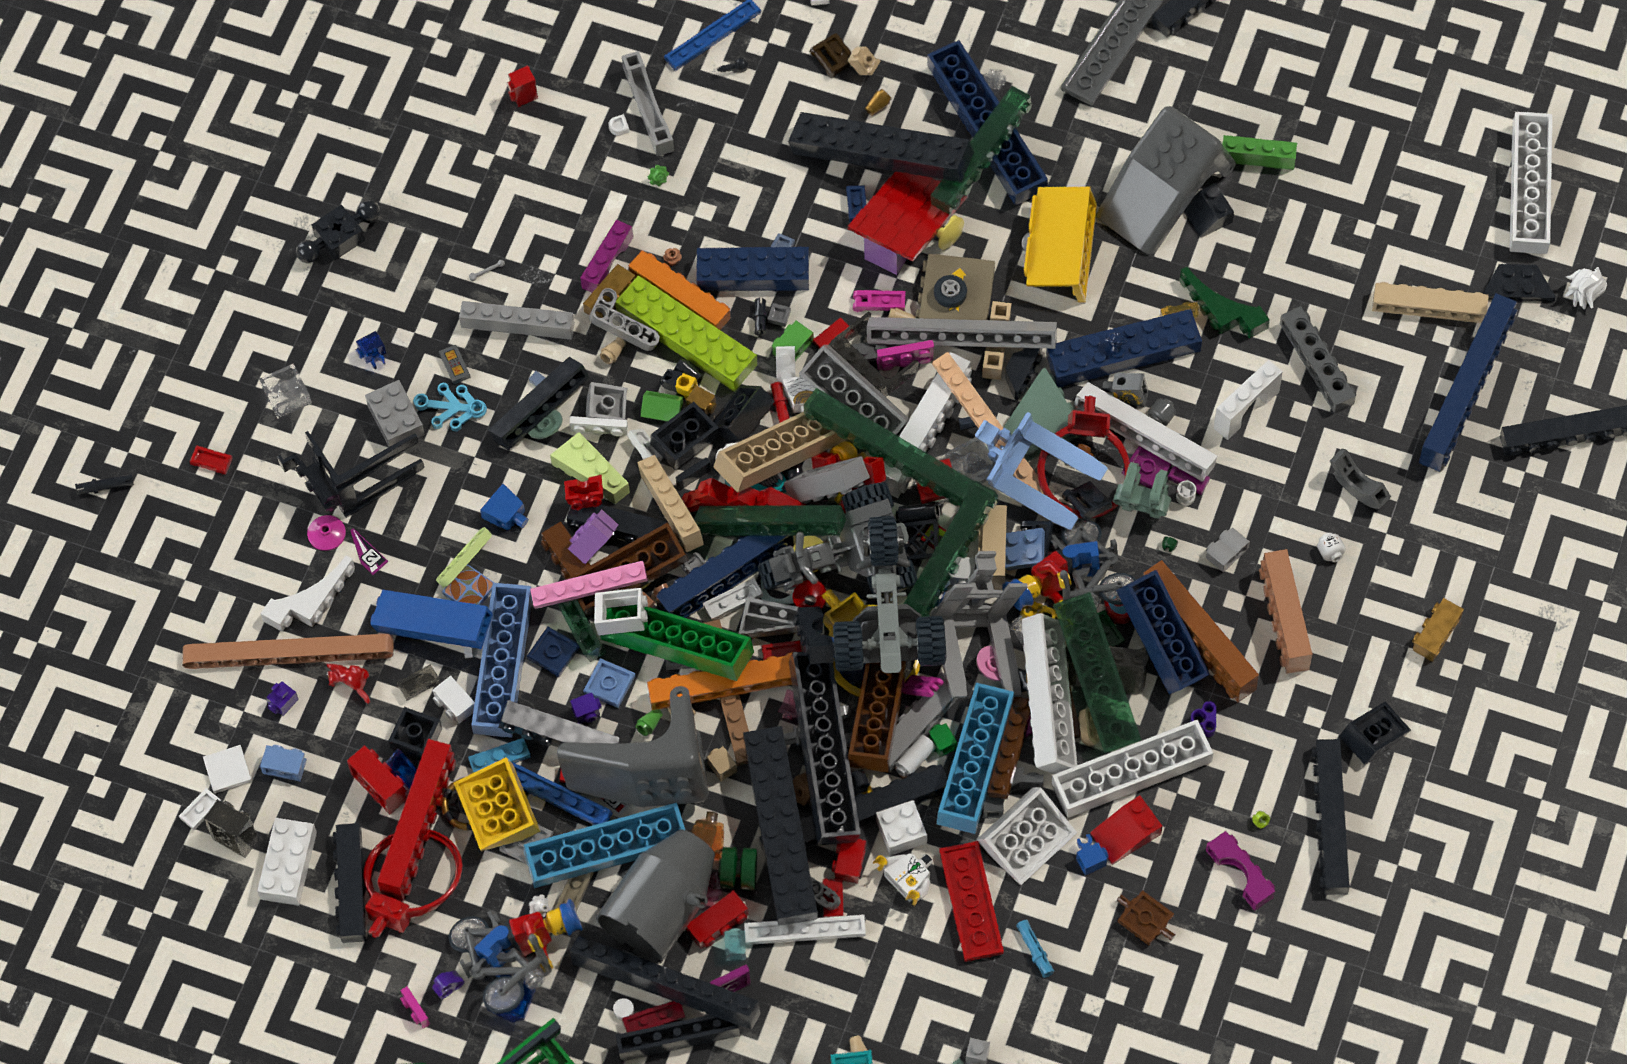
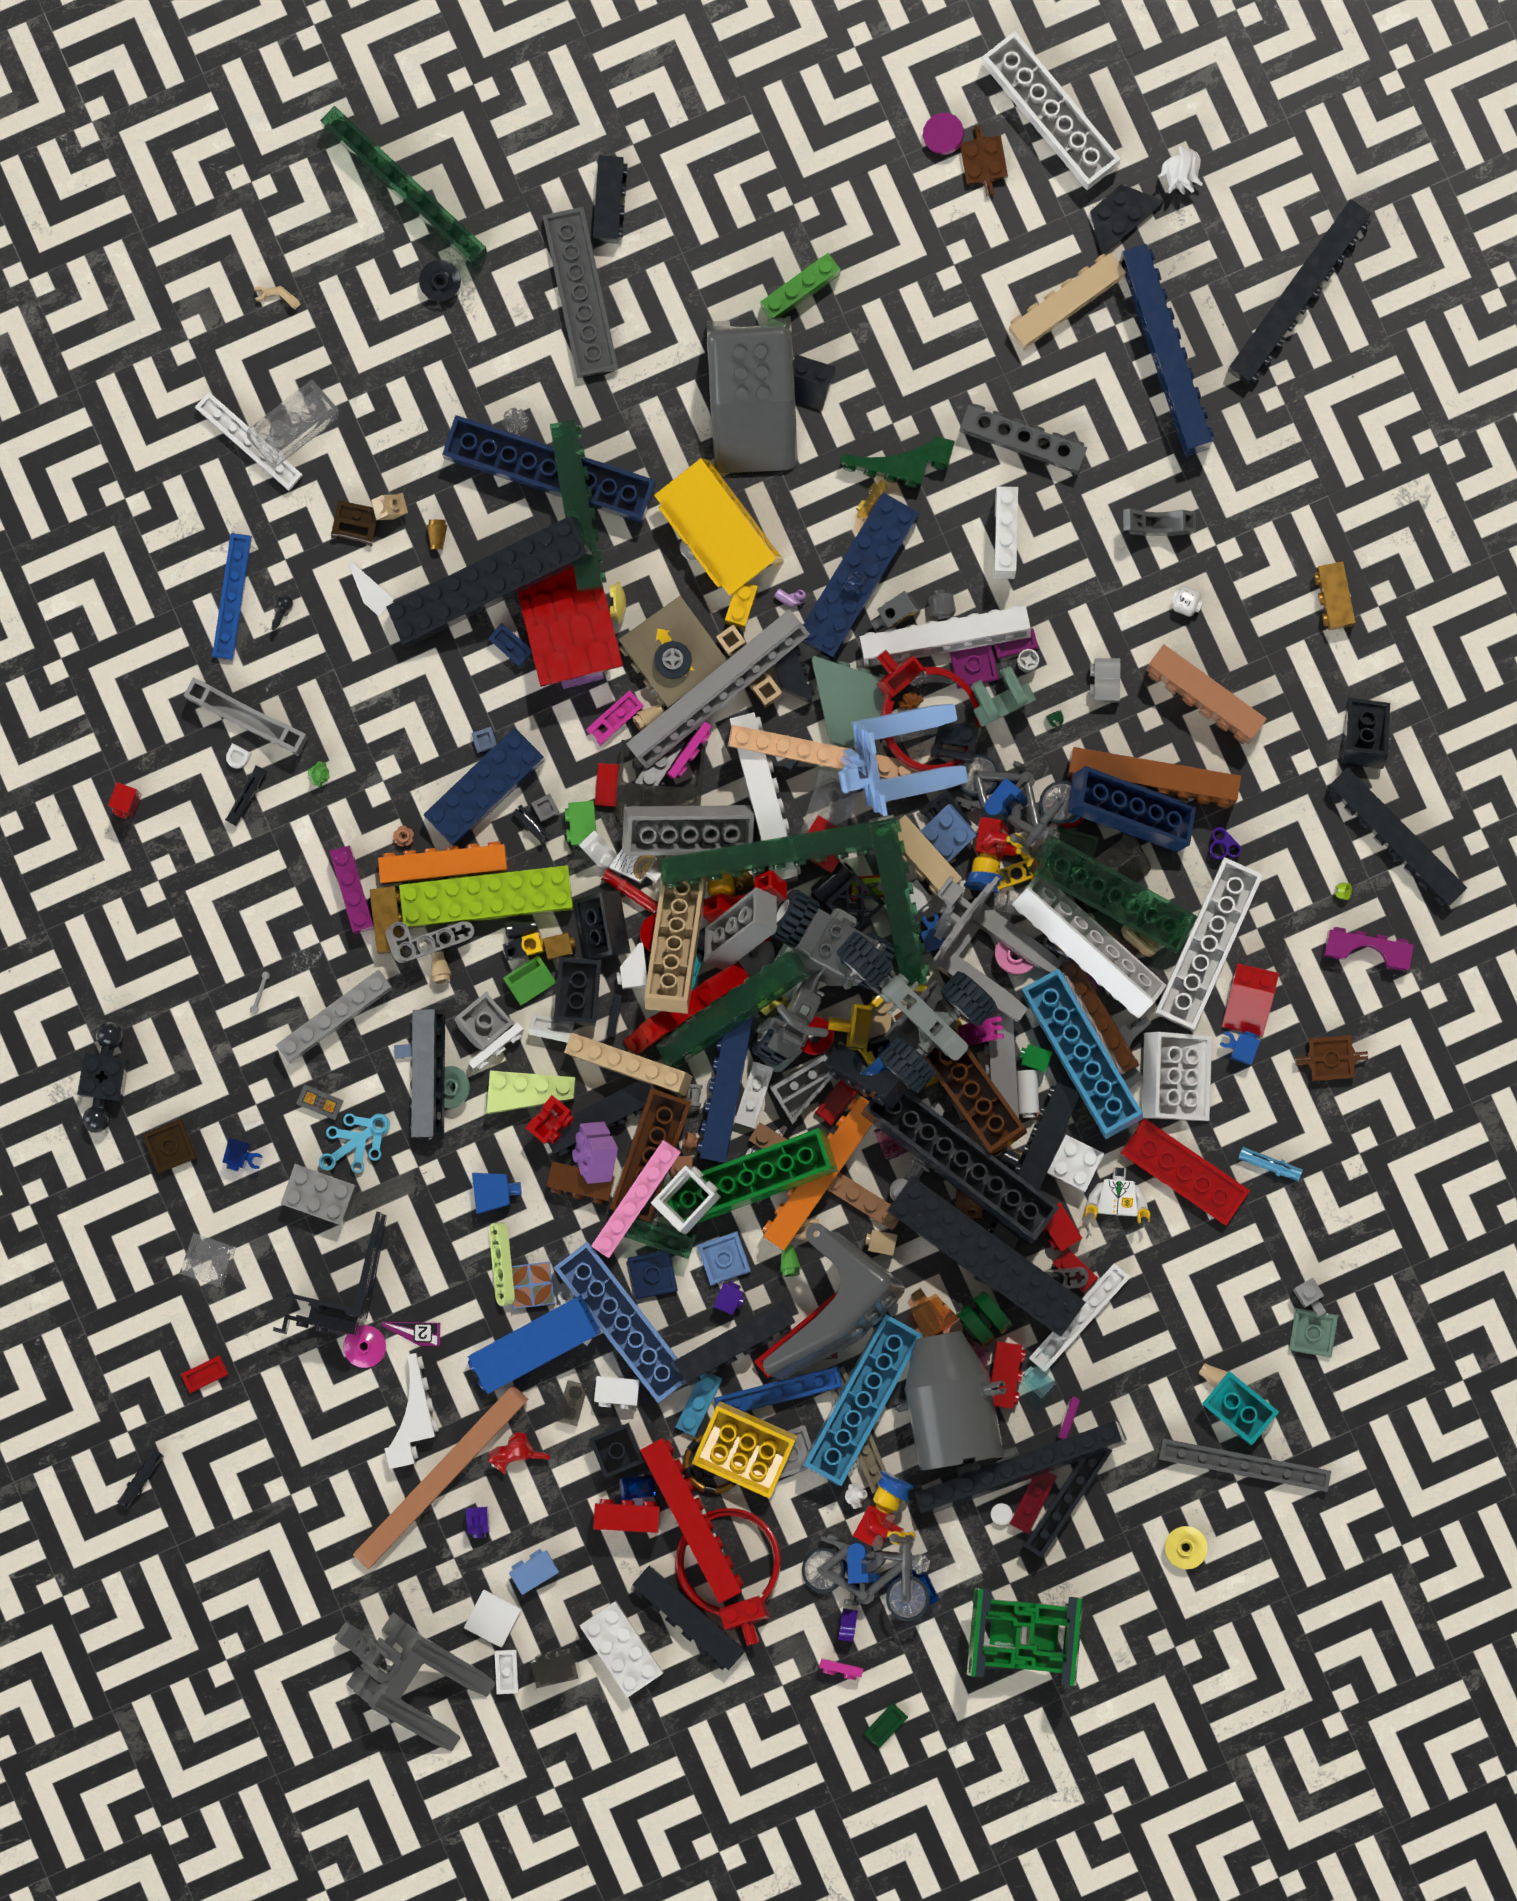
camera: 40 degrees left, 20 degrees up
(131, 730) = (417, 1651): none -> dark grey piece
(335, 308) = (169, 1146): none -> dark brown plate
(599, 150) = (246, 795): none -> black pin
(801, 101) = (371, 593): none -> white sticker
(1029, 302) = (741, 606): none -> yellow brick
(1065, 328) = (791, 599): none -> lavender arm
(1445, 141) = (943, 133): none -> magenta tile
(1457, 178) = (984, 160): none -> reddish brown plate

